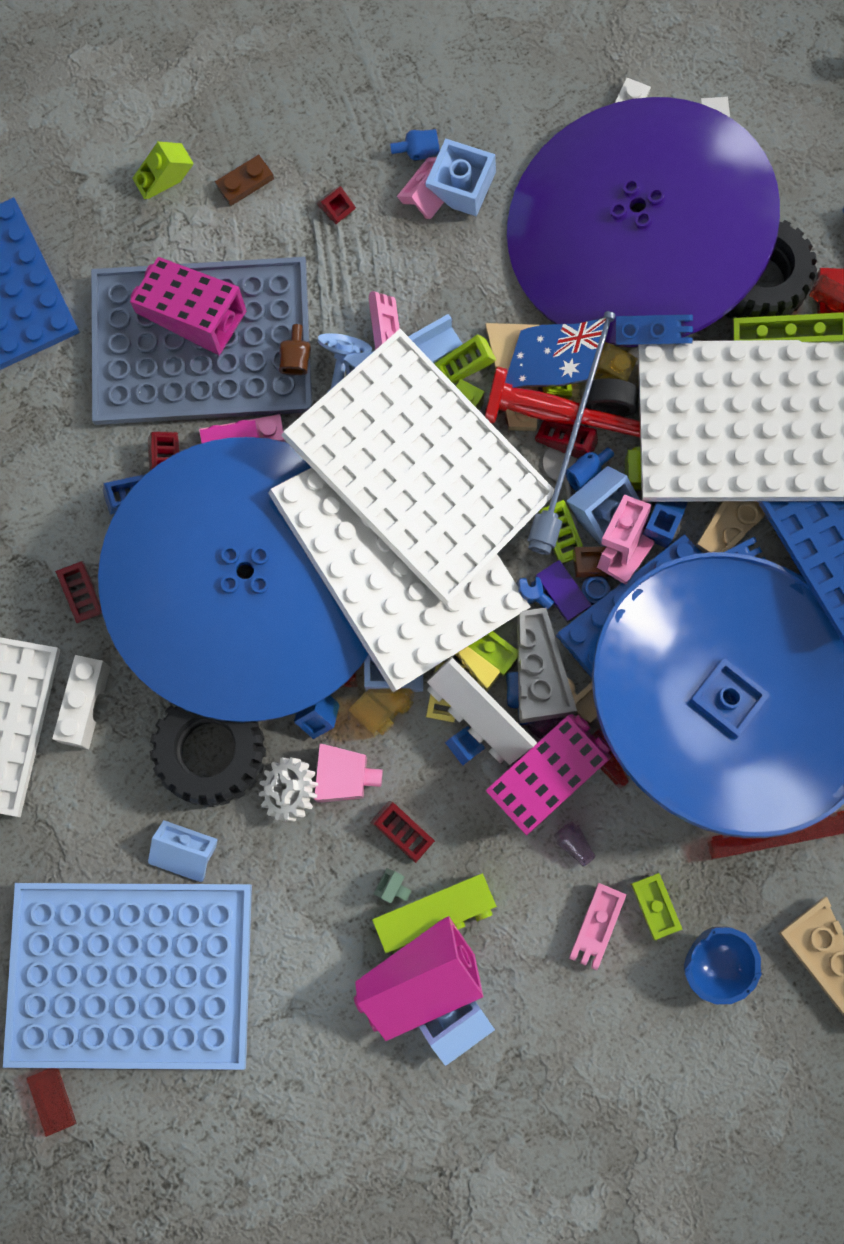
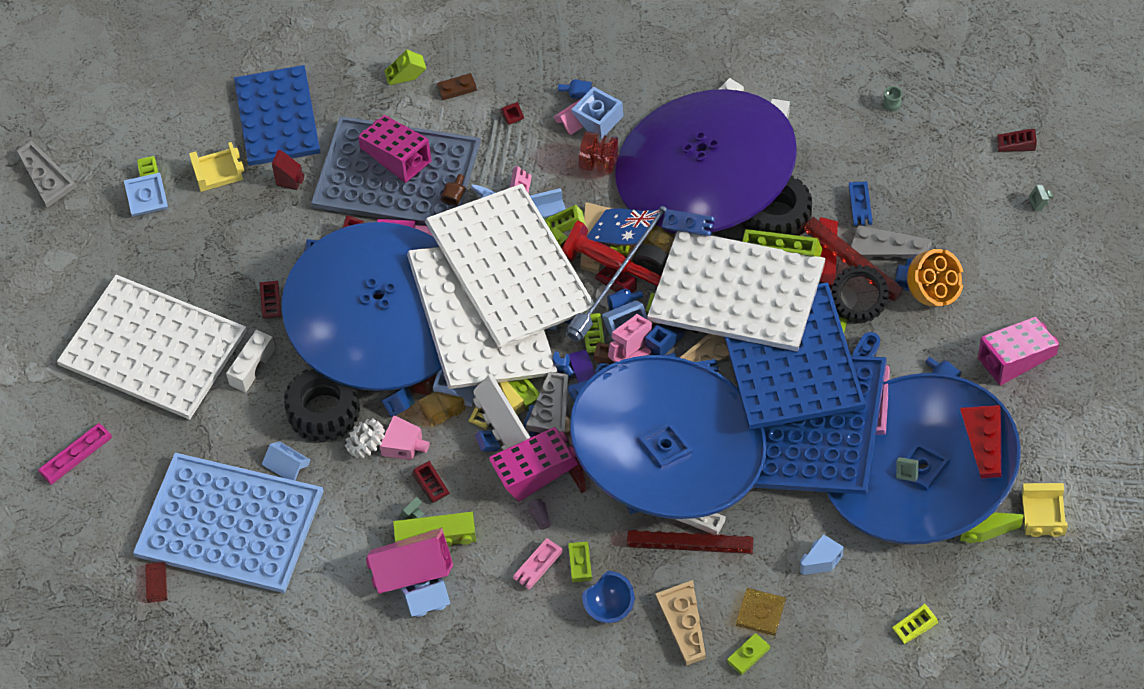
camera: 15 degrees right, 20 degrees down
(41, 379) = (287, 171): none -> dark red slope
(484, 242) = (597, 152): none -> clear red wheel

